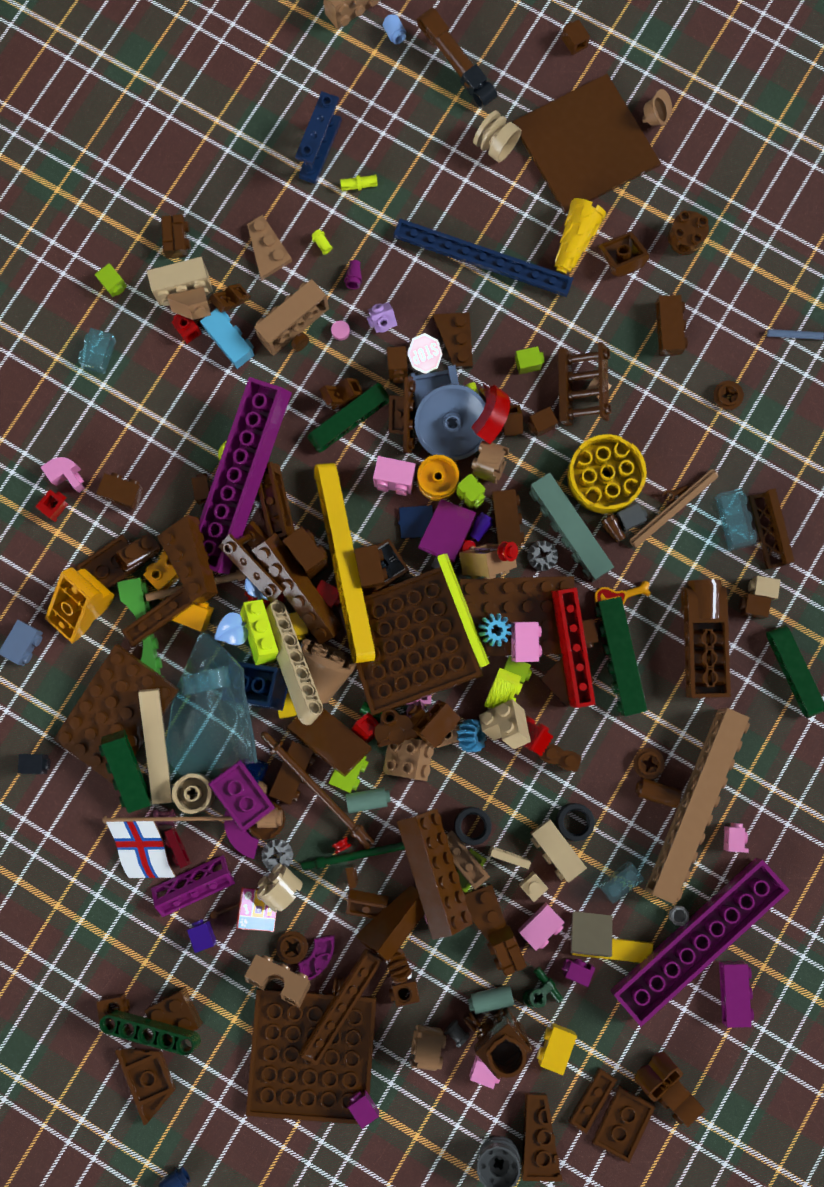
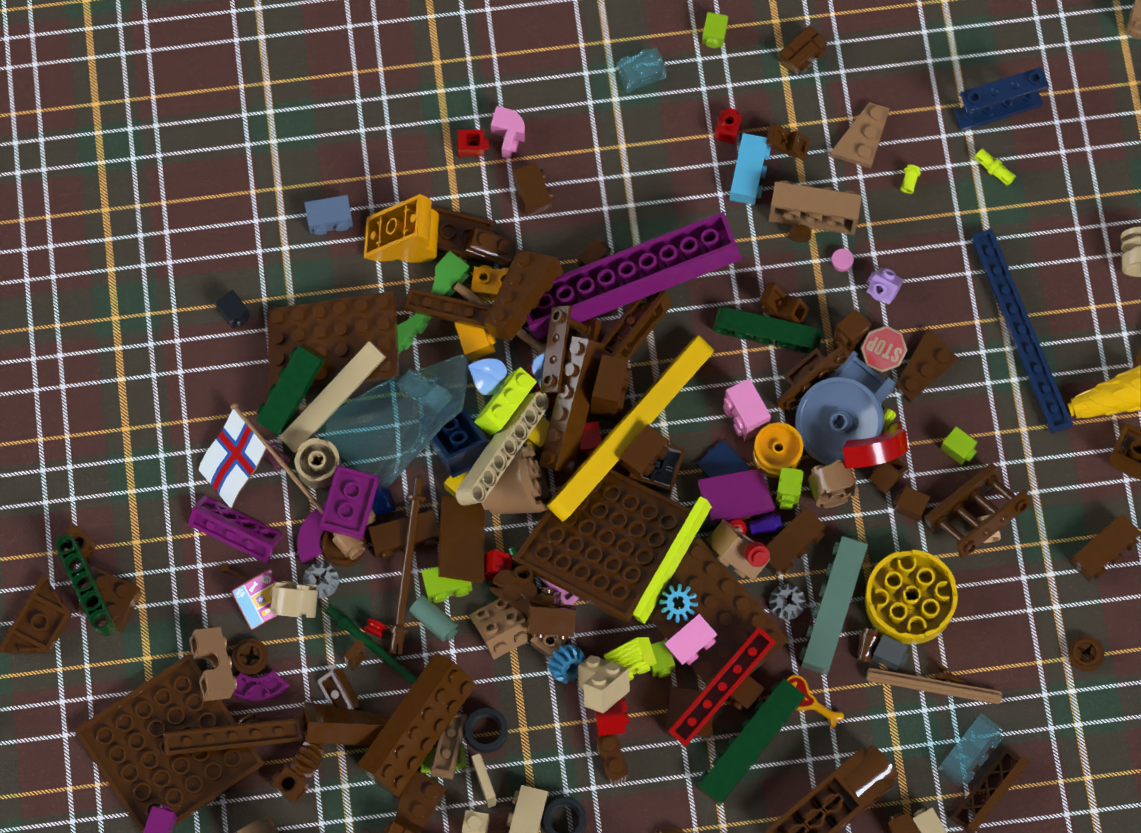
camera: 50 degrees right, 10 degrees down
(173, 840) = (261, 481): dark red plate -> none
(178, 278) = (764, 88): tan brick -> none
(190, 303) = (751, 112): medium nougat slope -> none
(201, 935) = (198, 570): dark purple brick -> none
(353, 276) = (903, 231): magenta cone -> none

